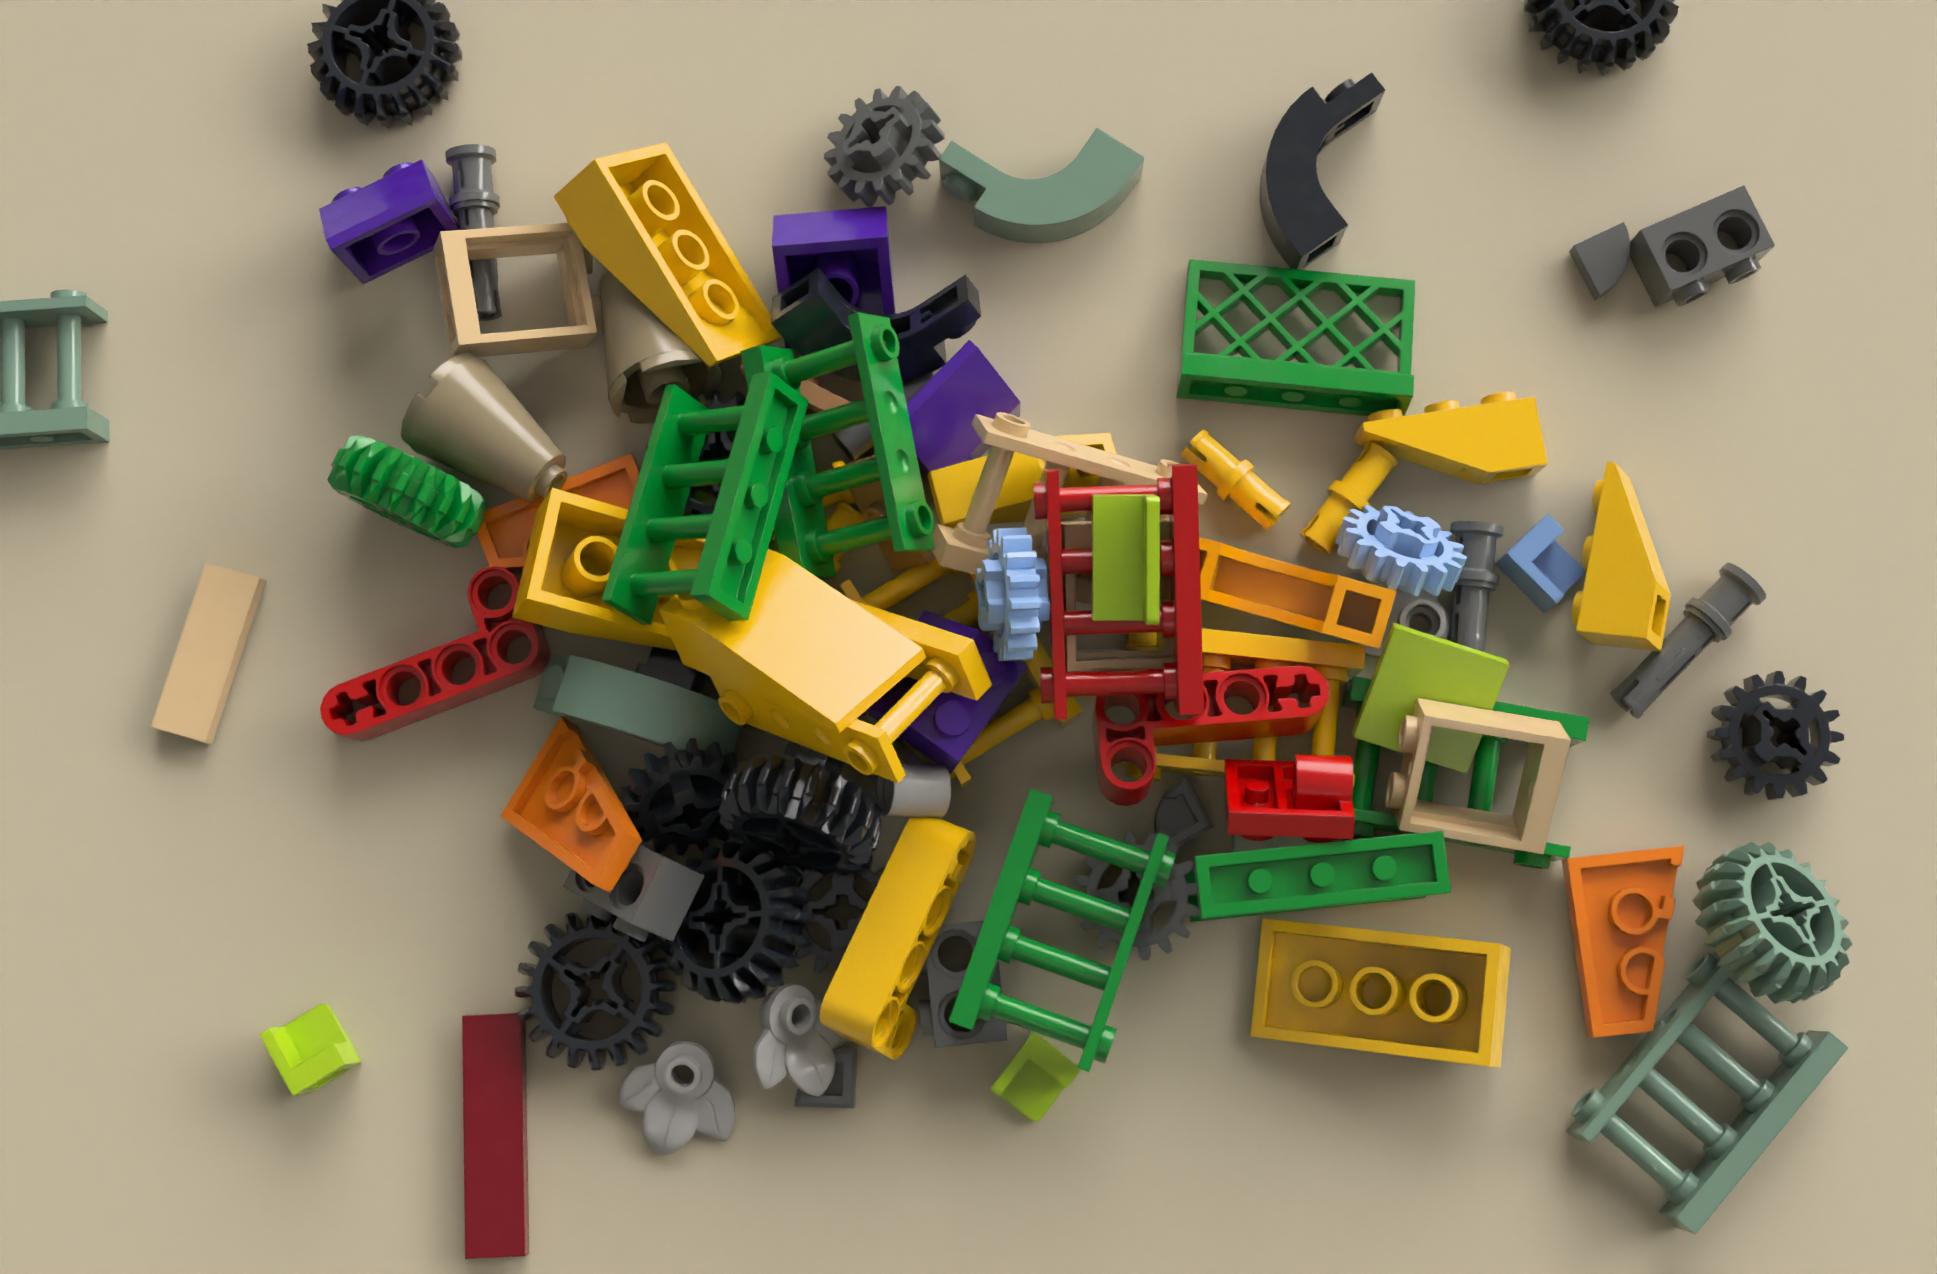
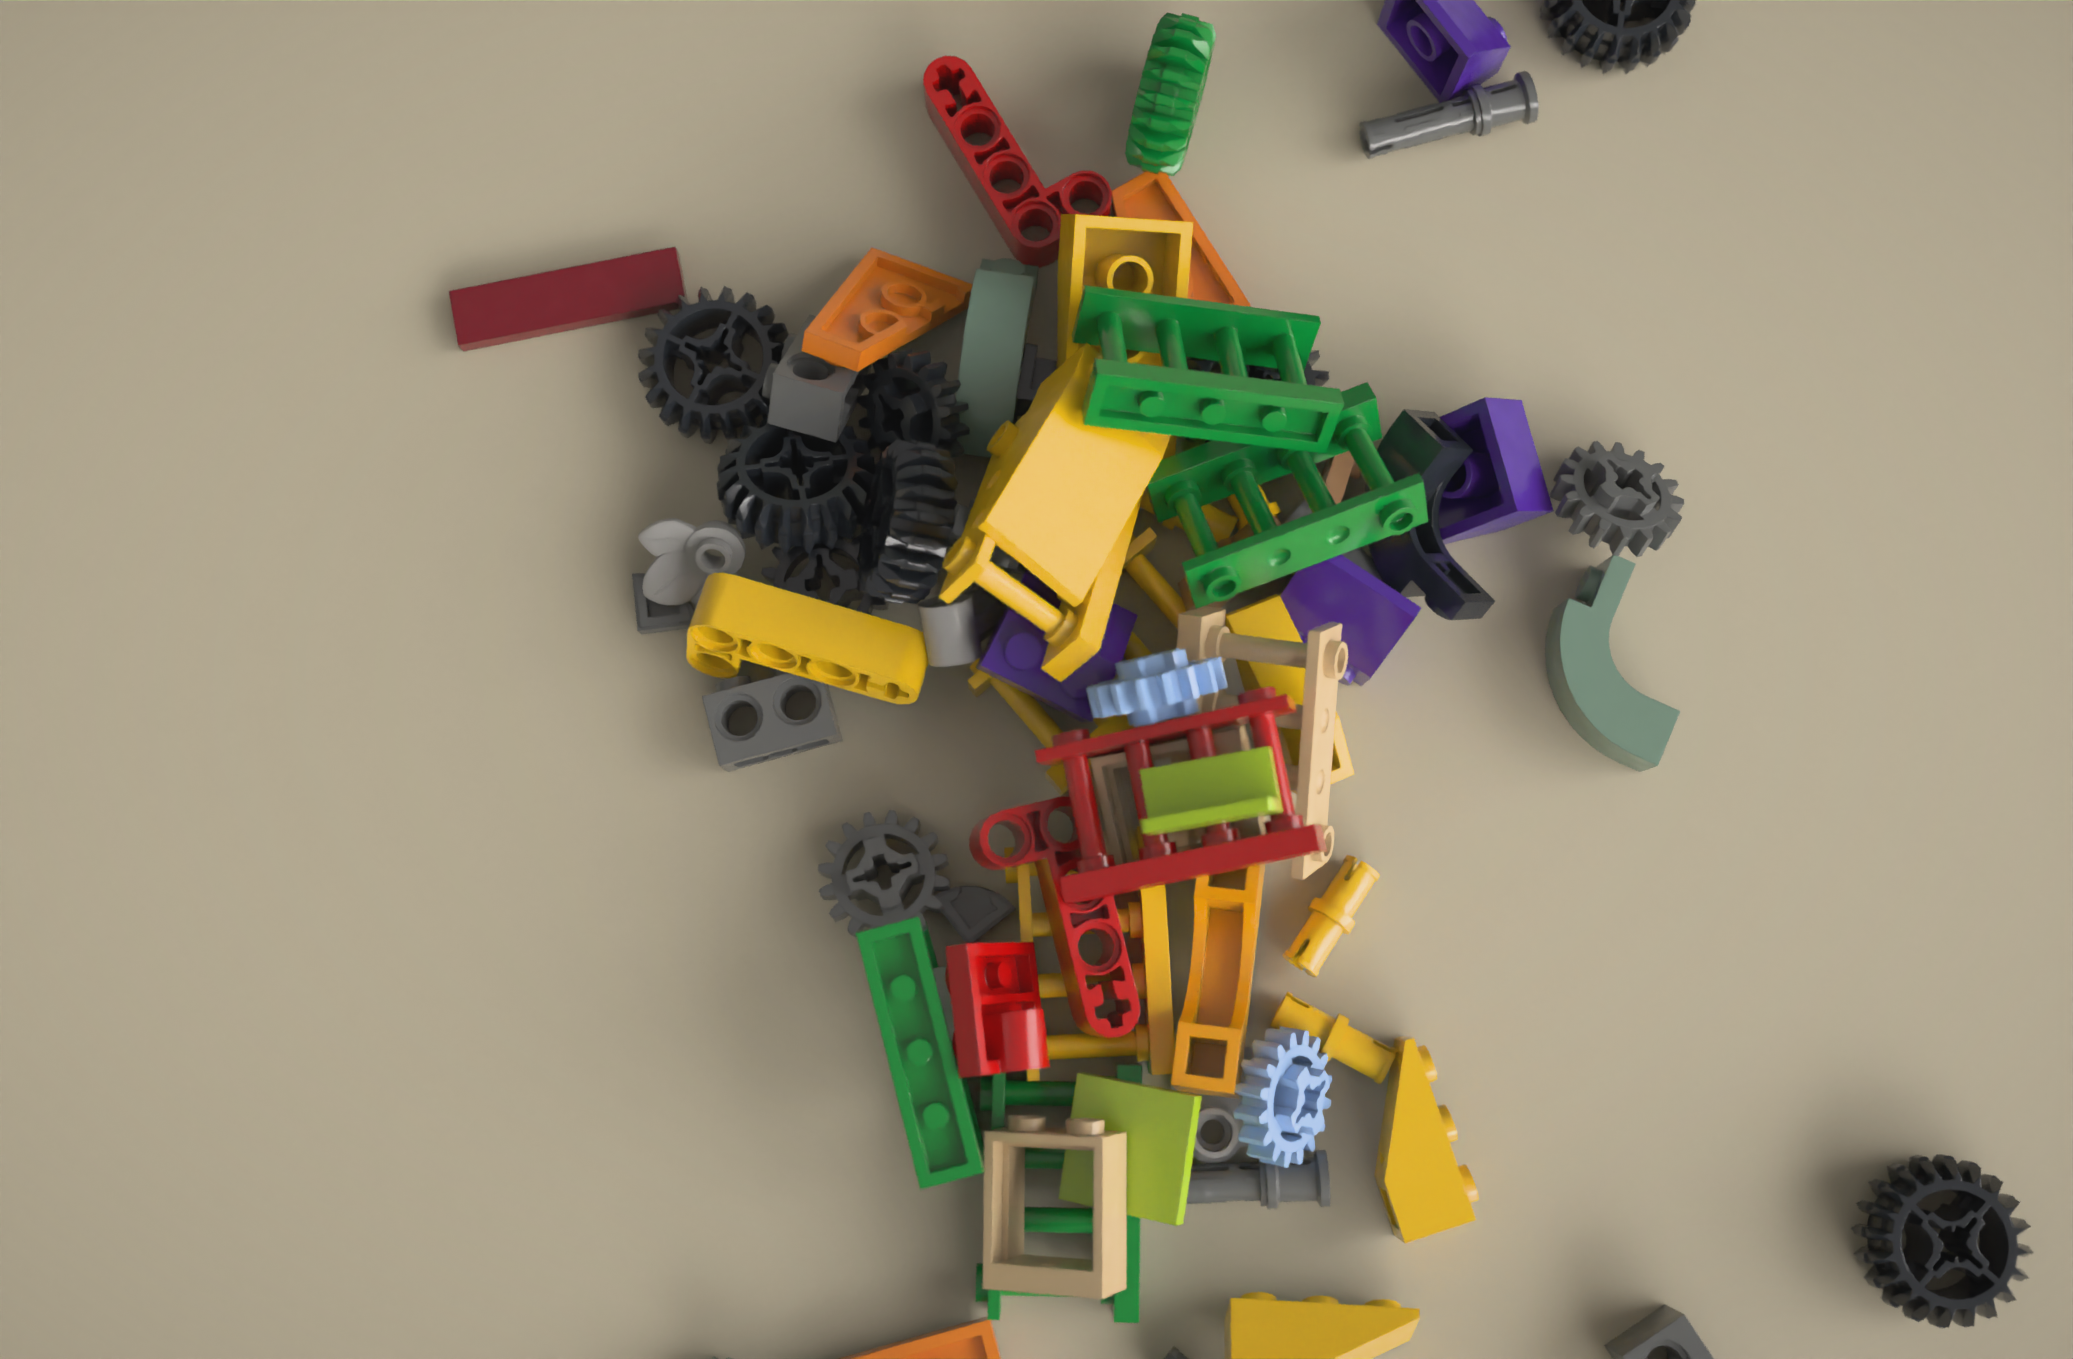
camera: 75 degrees right, 0 degrees up
(310, 1050) = (623, 113): lime panel -> none
(452, 259) = (1443, 150): tan window -> none
(483, 431) = (1245, 154): dark tan cone -> none
(646, 356) = (1365, 300): dark tan cone -> none
(664, 246) = (1462, 298): yellow slope -> none
(677, 1106) = (618, 463): light grey plate -> none
(1003, 942) = (811, 741): green fence -> none
(1035, 1077) = (693, 803): lime panel -> none
(1291, 199) = (1637, 935): black arch -> none
(1300, 383) = (1446, 969): green fence -> none
(1381, 992) = (822, 1145): yellow slope -> none
(1541, 565) = (1297, 1254): medium blue panel -> none
(1603, 259) = (1646, 1280): dark grey tile -> none

